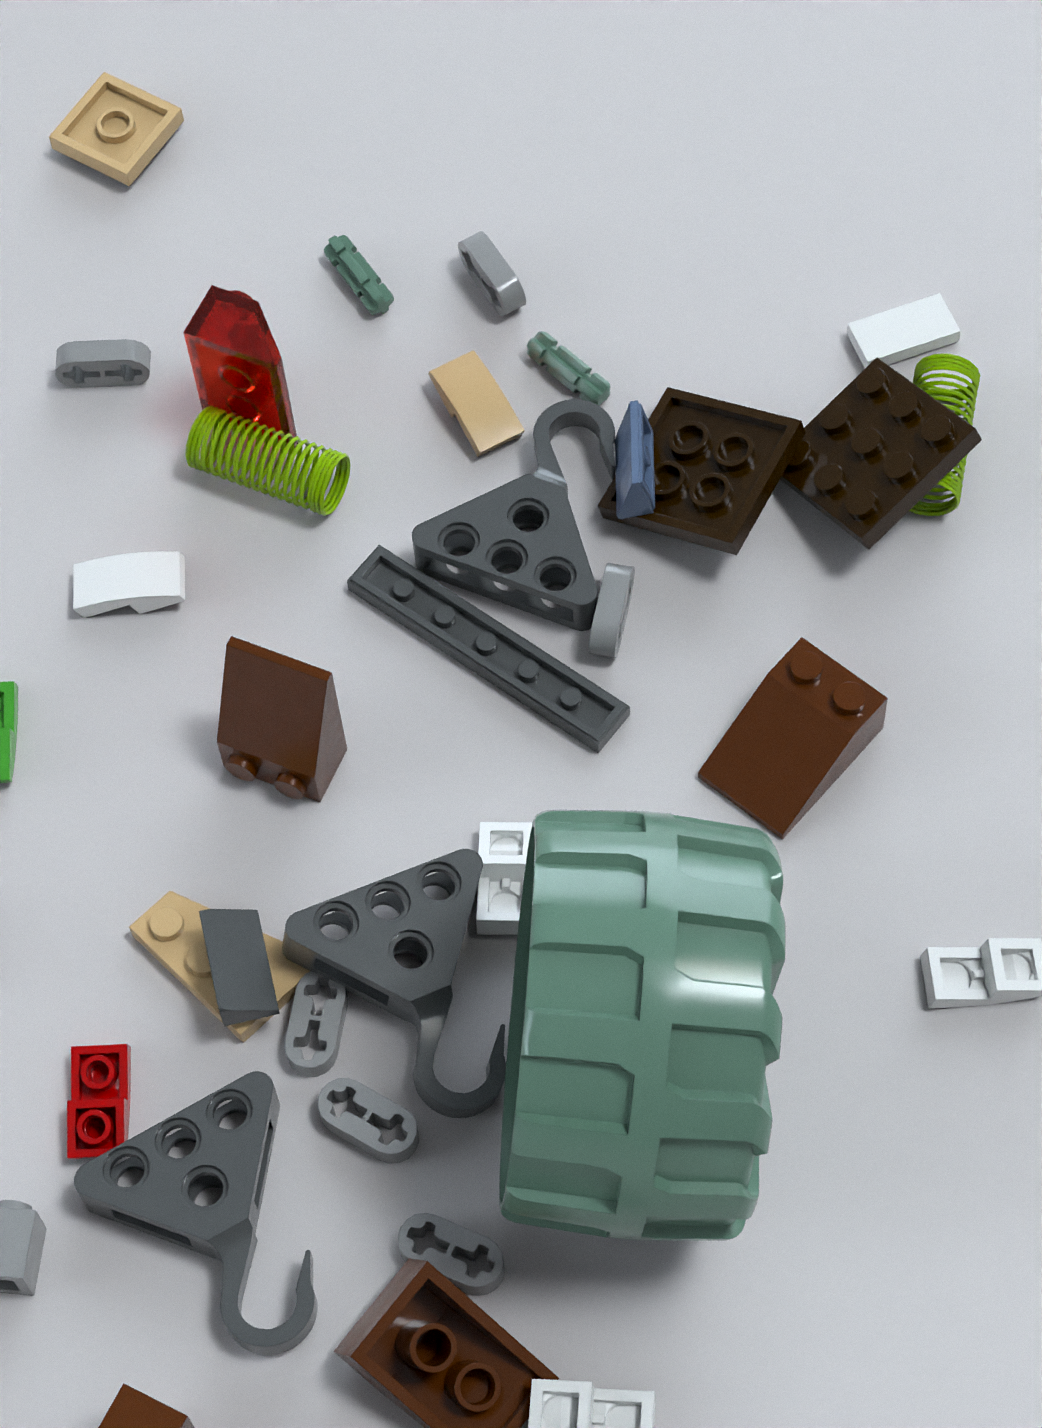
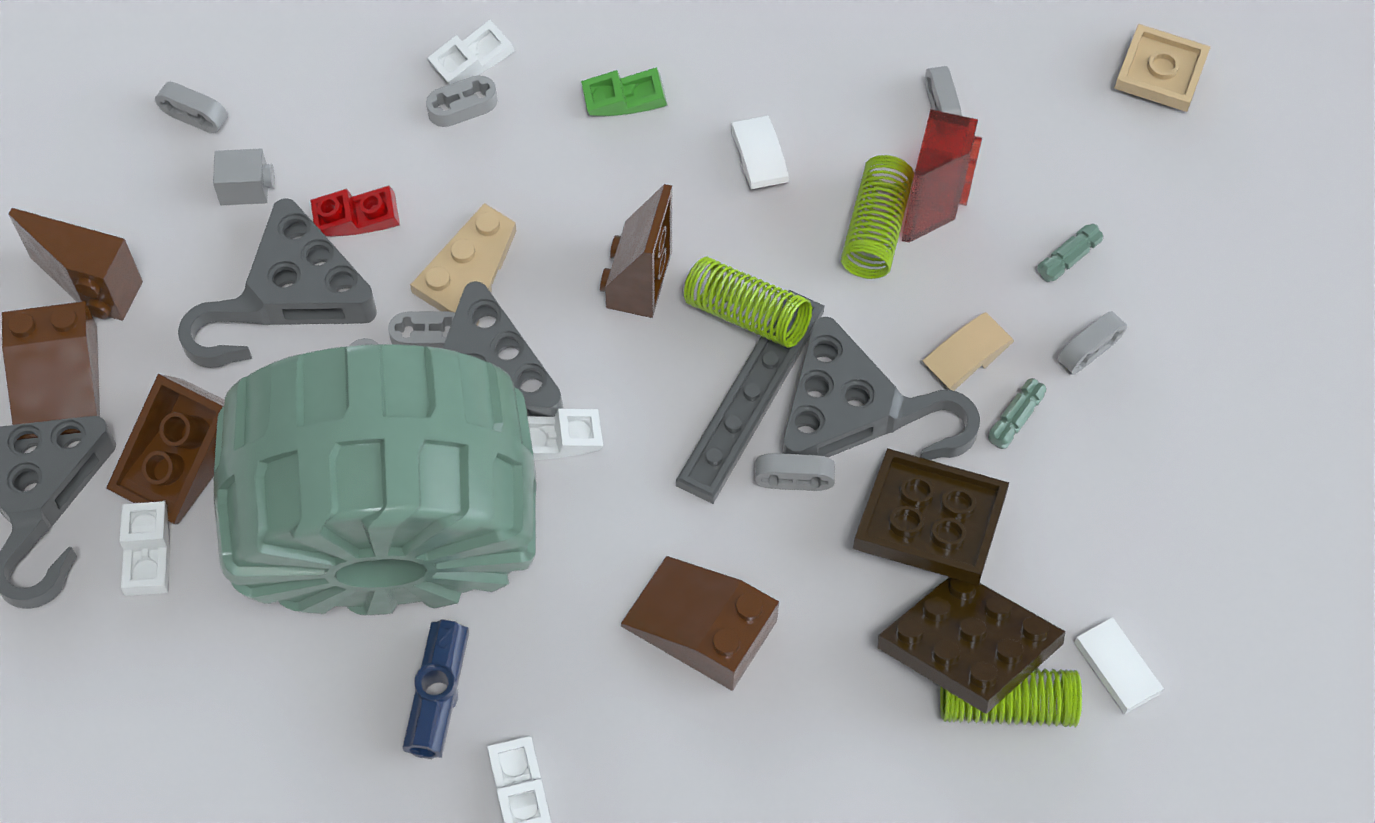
camera: 75 degrees right, 0 degrees up
(238, 964) = (452, 265): dark grey slope -> none
(416, 578) = (748, 300): none -> lime piece
(634, 464) = (922, 463): sand blue slope -> none
(888, 1060) = (432, 713): none -> dark blue piece

